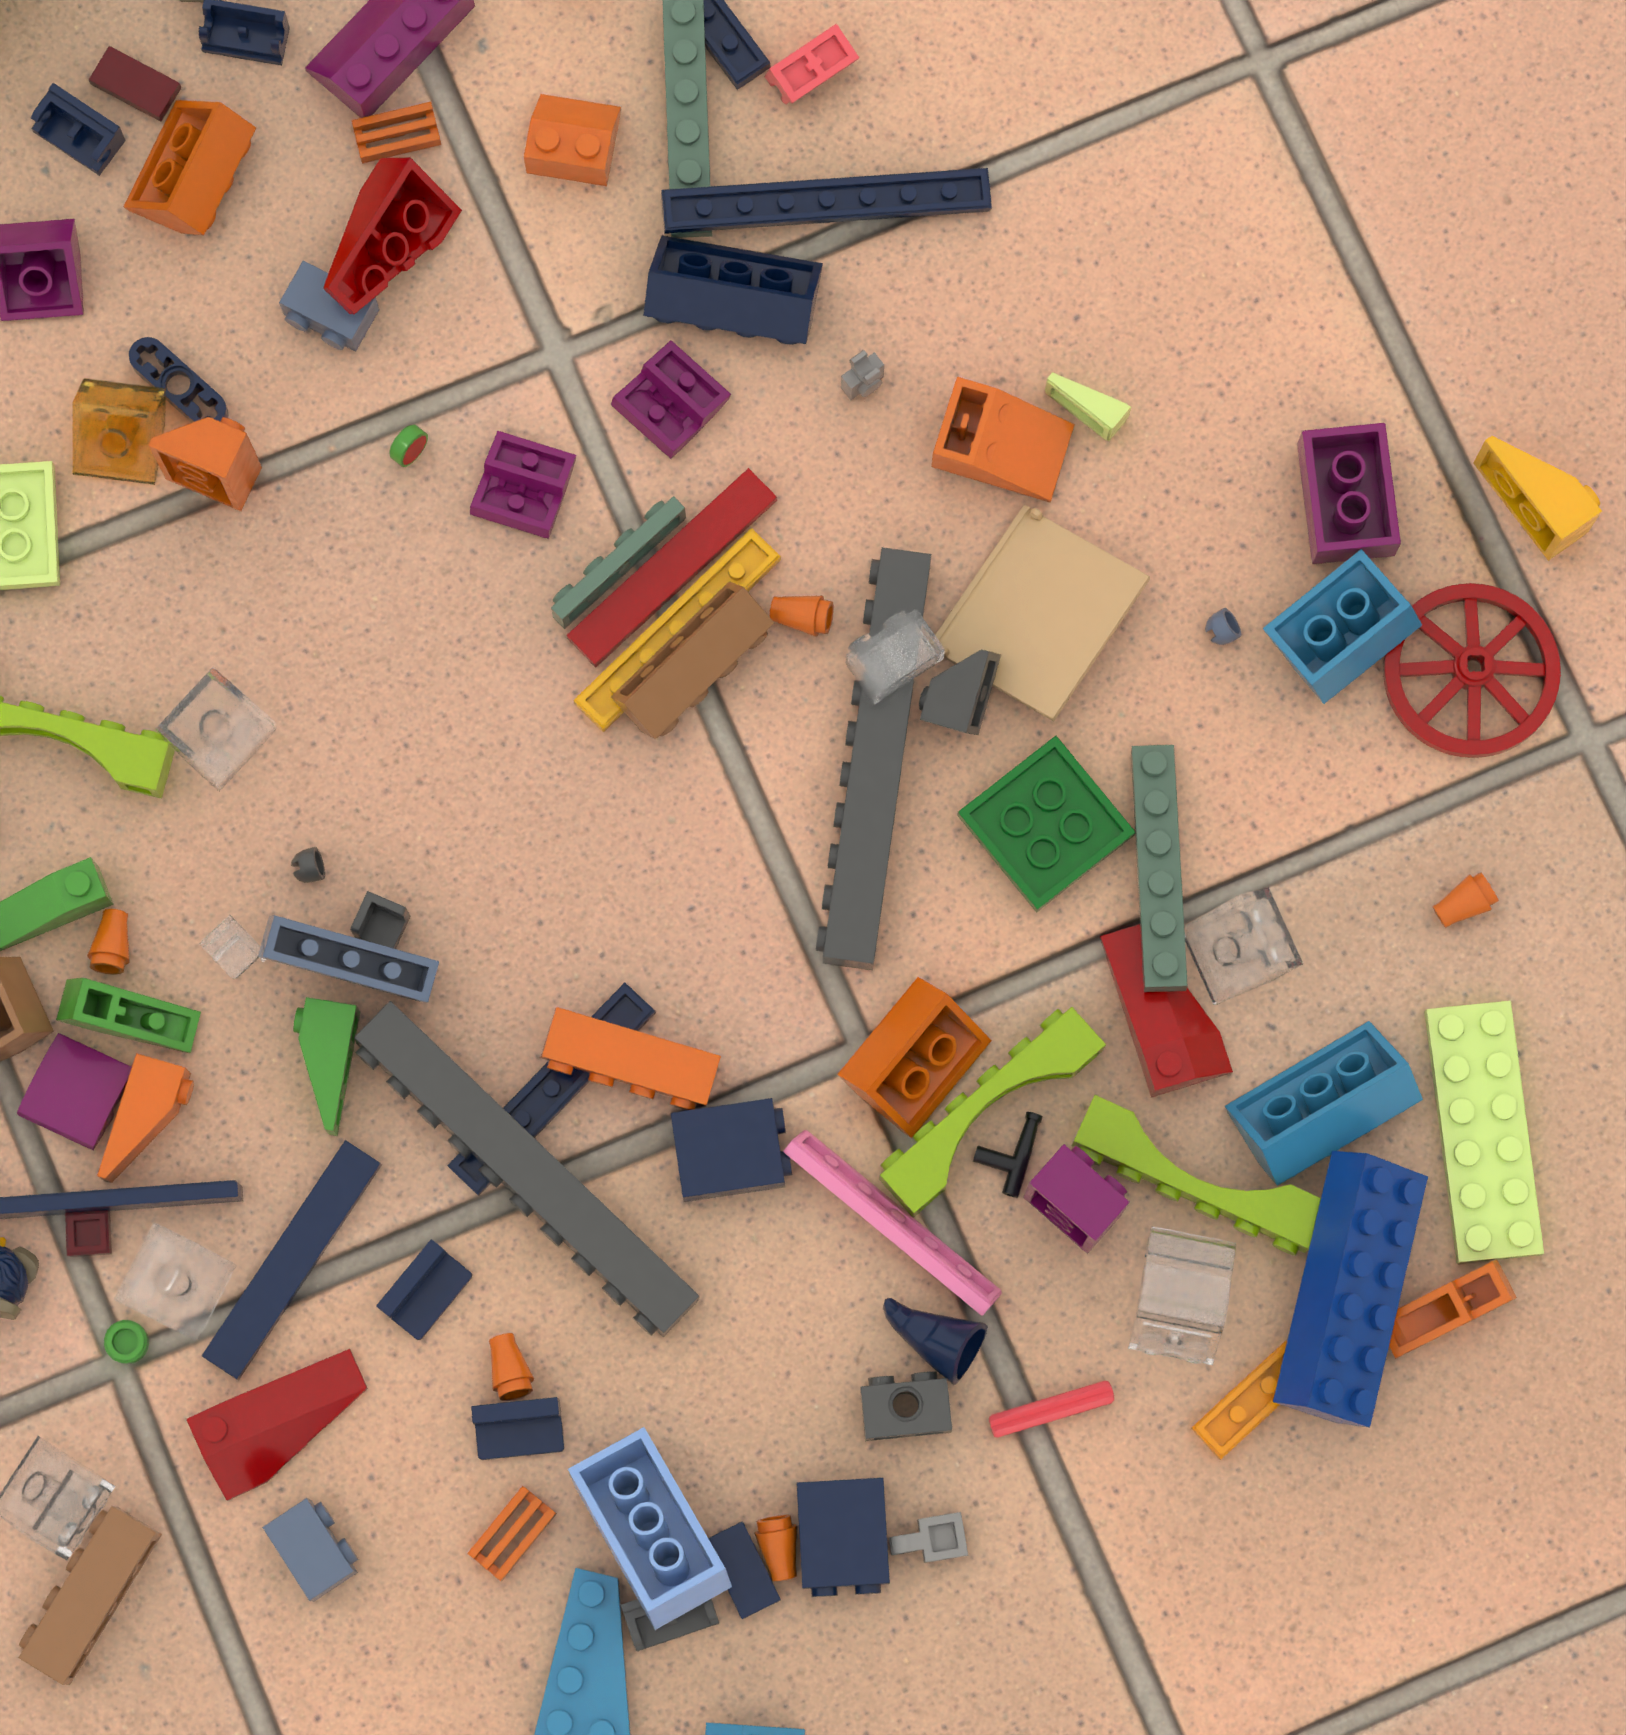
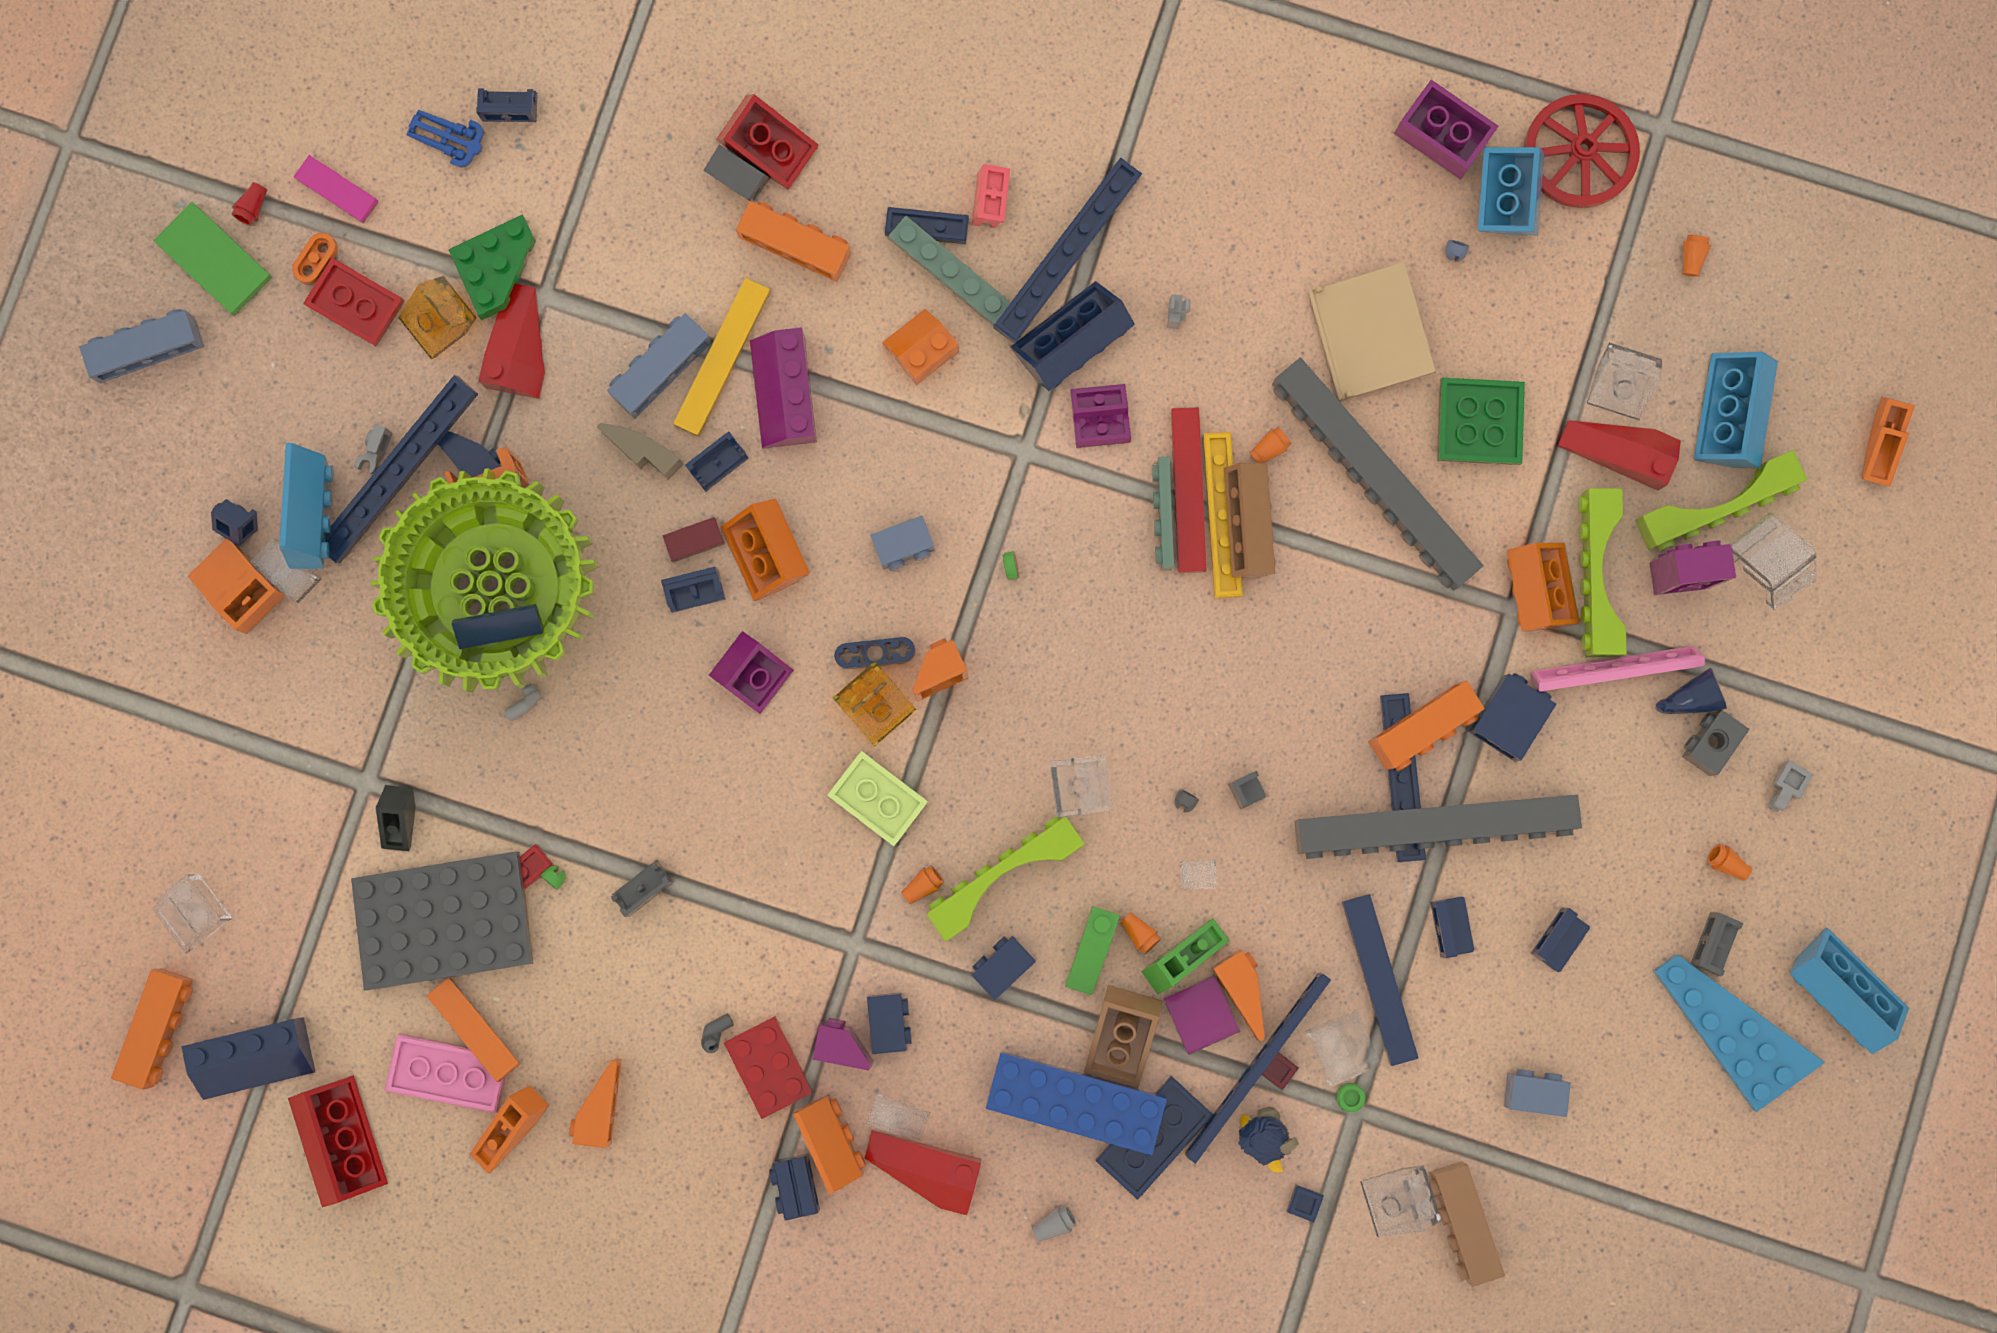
camera: 50 degrees left, 5 degrees up
(267, 1426) = (1454, 1061): red wedge -> none
(327, 1047) = (1289, 870): bright green slope -> none
(348, 958) = (1258, 822): sand blue brick -> none
(391, 226) = (888, 471): red wedge -> none
(395, 117) = (825, 431): orange tile -> none
(488, 1562) = (1625, 1006): orange tile -> none
(509, 1369) = (1529, 919): orange cone -> none
(523, 484) = (1080, 526): magenta slope -> none
(650, 1528) = (1676, 918): light blue brick -> none
(749, 1579) = (1724, 890): dark blue tile -> none
(843, 1536) = (1751, 826): dark blue brick -> none
(894, 655) = (1341, 419): clear brick -> none
(961, 693) = (1382, 406): dark grey slope -> none
(1001, 440) = (1267, 273): orange slope -> none
(1016, 1164) = (1636, 585): black piece -> none
(1051, 1409) = (1772, 672): coral axle -> none
(1093, 408) = (1291, 214): yellowish green slope -> none
(1159, 868) = (1552, 386): sand green plate -> none
(1242, 1407) = (1849, 572): light orange tile -> none
(1350, 1288) = (1845, 477): blue brick -> none
(1484, 1132) = (1813, 347): yellowish green plate -> none
(1541, 497) = (1531, 41): yellow slope -> none

